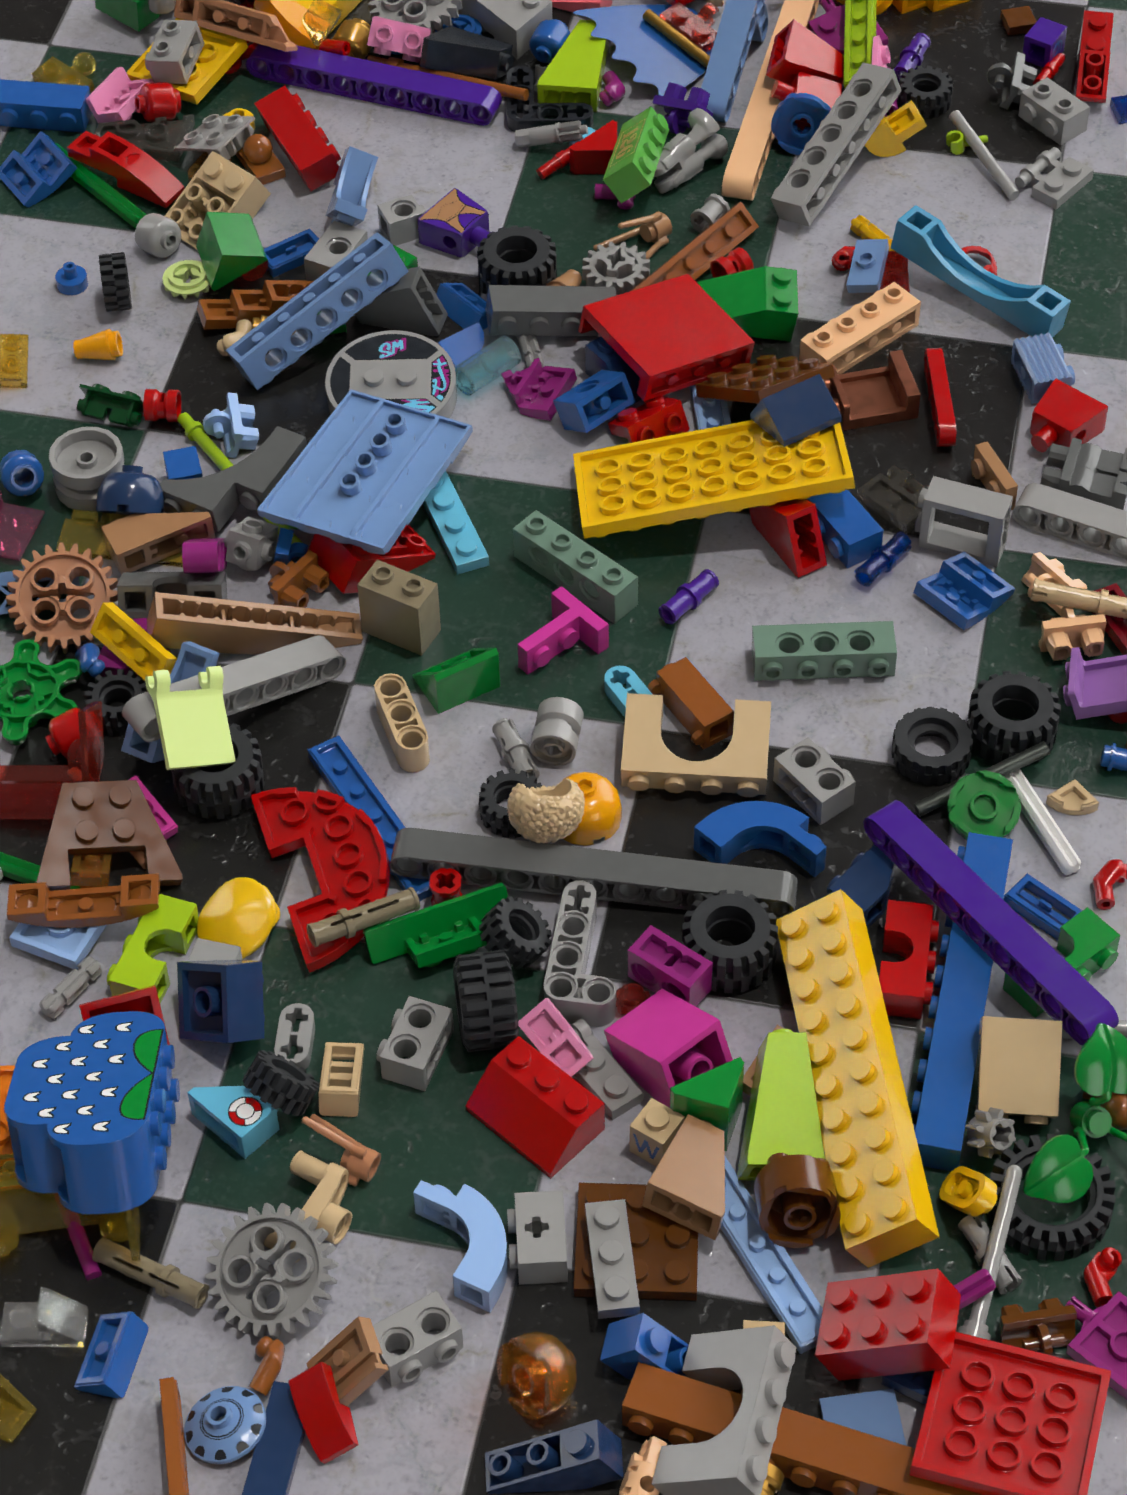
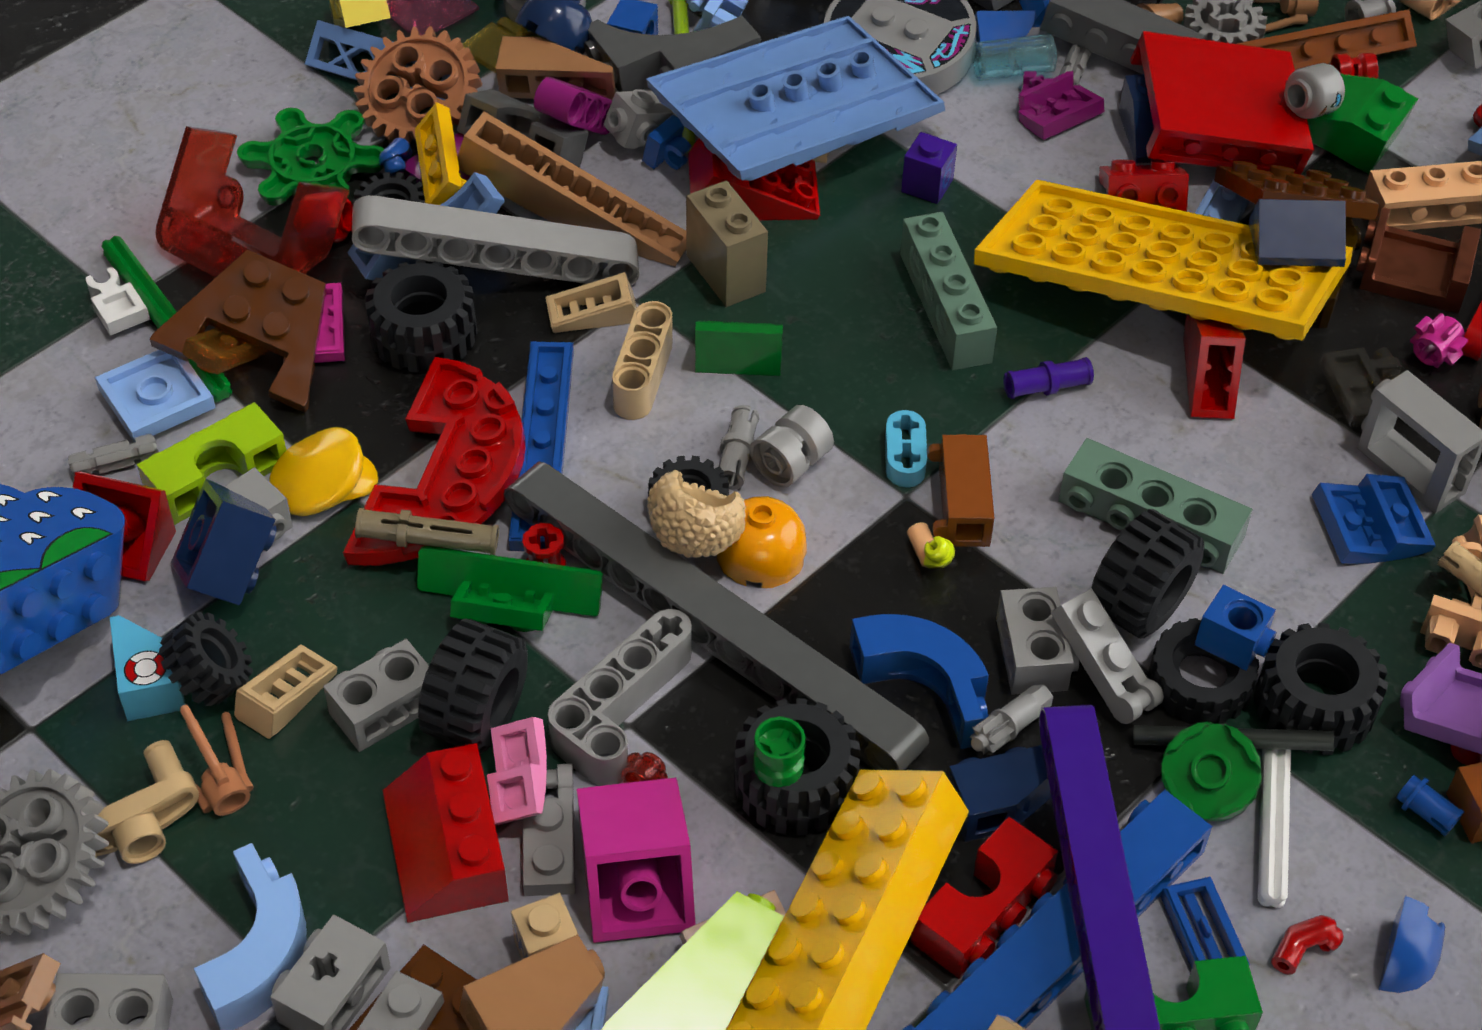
camera: 30 degrees right, 0 degrees up
(84, 906) = (175, 380): dark orange slope -> none
(192, 721) = (410, 251): yellowish green flag -> none
(293, 579) = (653, 175): dark orange hips -> none
(302, 1039) = (274, 623): light grey beam -> none
(330, 686) = (612, 291): none -> tan slope
(455, 527) = (860, 193): medium azure plate -> none
(492, 480) = (929, 167): none -> dark purple brick
(516, 930) = (553, 645): black tyre -> none
(571, 623) = (878, 350): dark pink bracket -> none
(594, 401) = (1097, 136): blue brick -> none
(668, 965) = (704, 761): magenta brick -> none
(692, 753) = (930, 550): none -> arm
(712, 1097) = (628, 935): green slope -> none
(728, 932) = (779, 751): none -> green wheel
(730, 297) = (1314, 90): none -> light grey head
(737, 769) = (958, 583): tan arch -> none
(839, 838) = (1006, 722): none -> light grey piece
(847, 527) = (1279, 384): blue brick -> none
(860, 698) = (1147, 572): none -> black tyre
(870, 766) = (1107, 657): none -> light grey plate
(883, 559) = (1300, 441): clear blue pin -> none
(924, 444) = (1438, 340): none -> dark pink gear
(942, 705) = (1236, 628): none -> blue brick
(1072, 800) = (1332, 820): tan tile -> none

